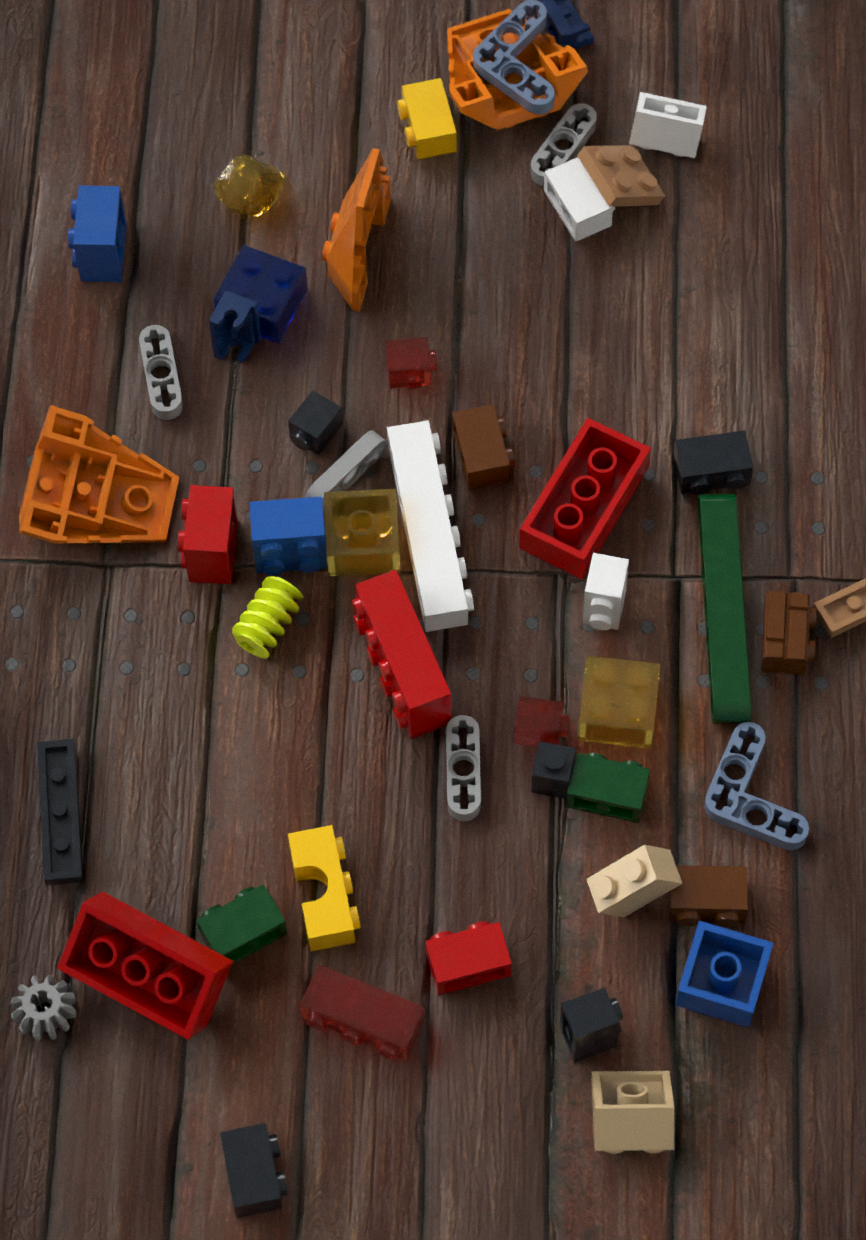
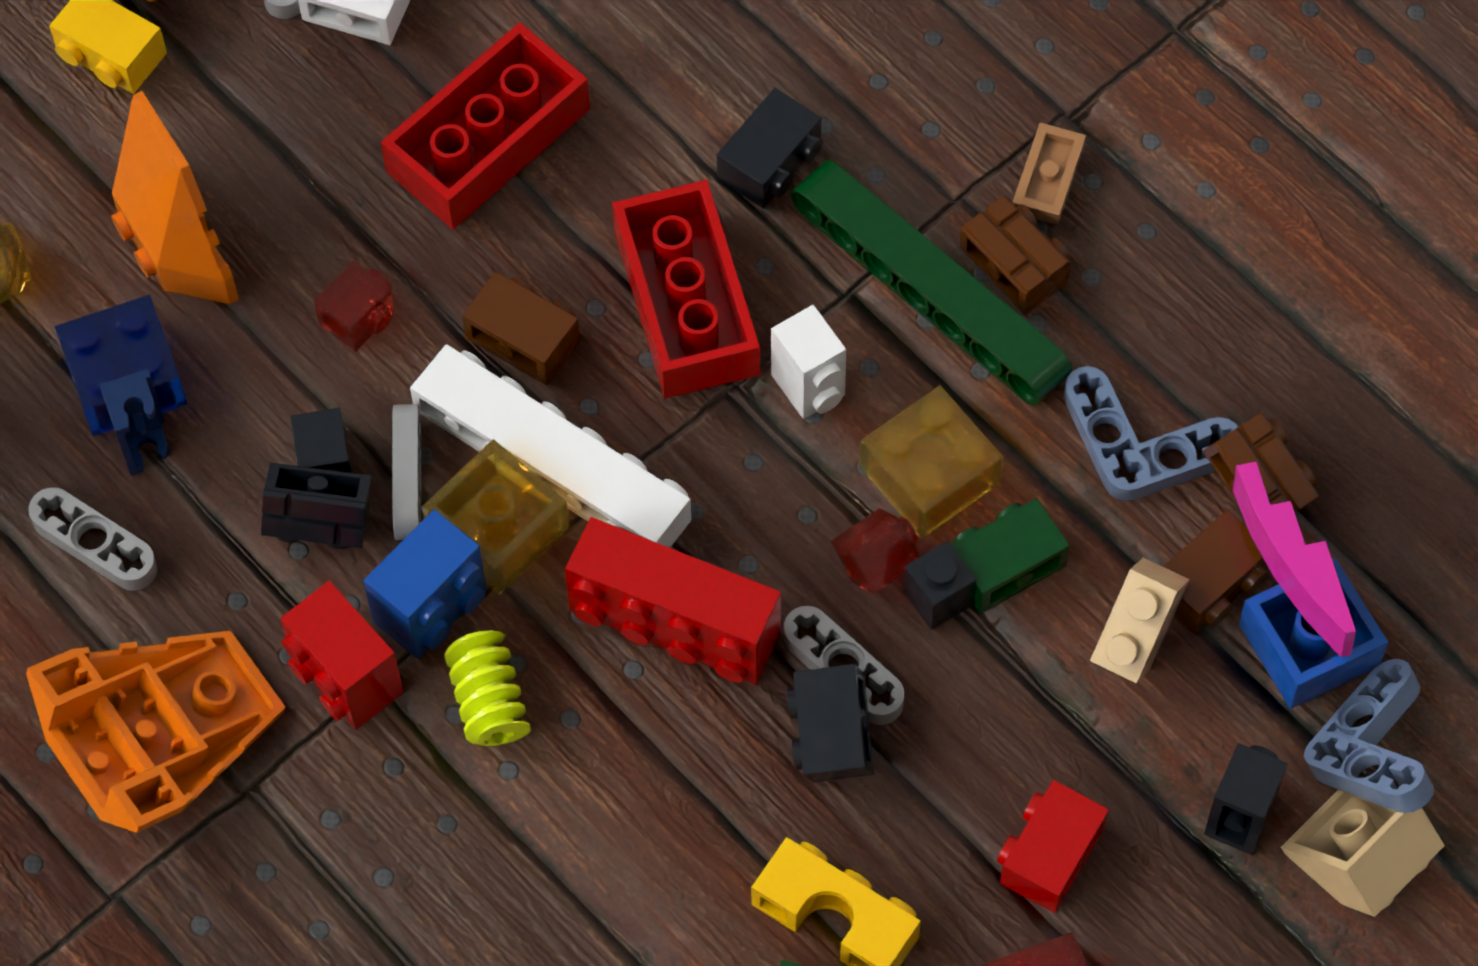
camera: 45 degrees left, 0 degrees up
(279, 448) = (315, 506): none -> black brick
(419, 790) = (831, 723): none -> black brick
(572, 323) = (486, 125): none -> red brick
(725, 1046) = (1386, 695): none -> sand blue beam
(743, 928) = (1300, 569): none -> dark pink slope
(790, 865) = (1264, 442): none -> reddish brown brick

